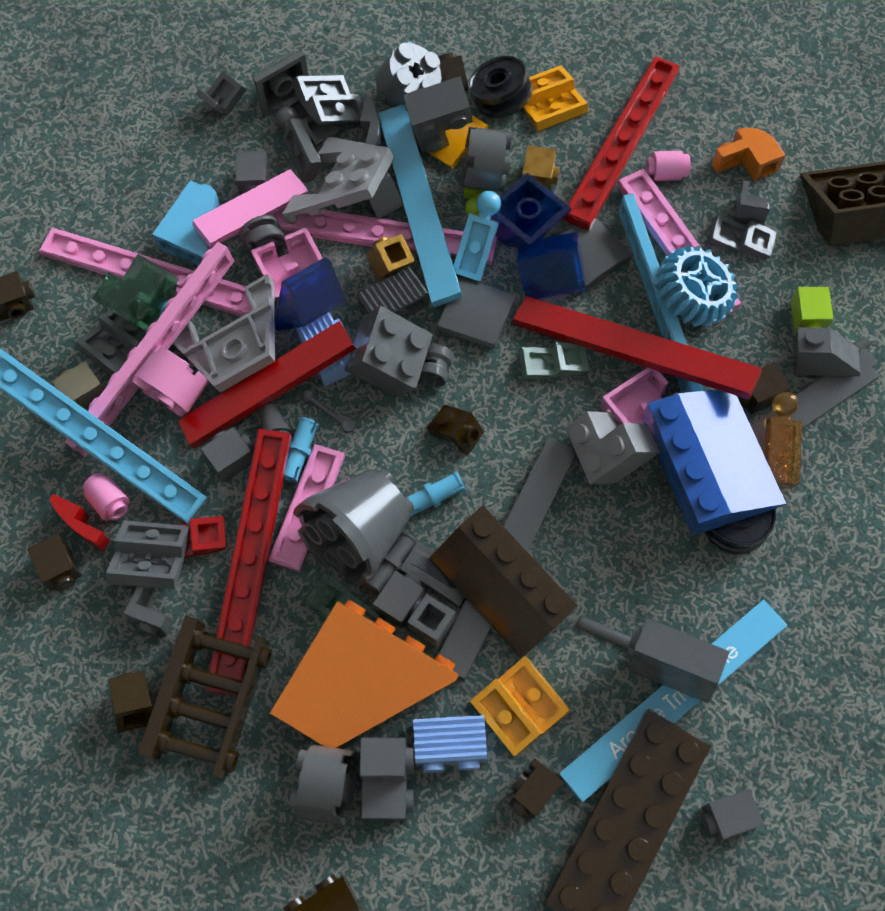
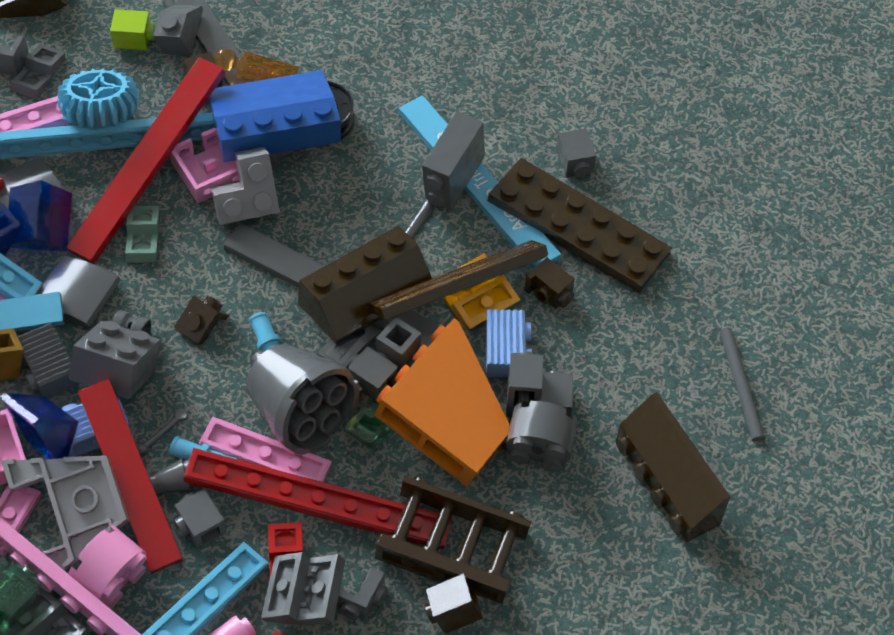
camera: 90 degrees left, 10 degrees down
(520, 683) = (458, 279): none -> dark brown tile

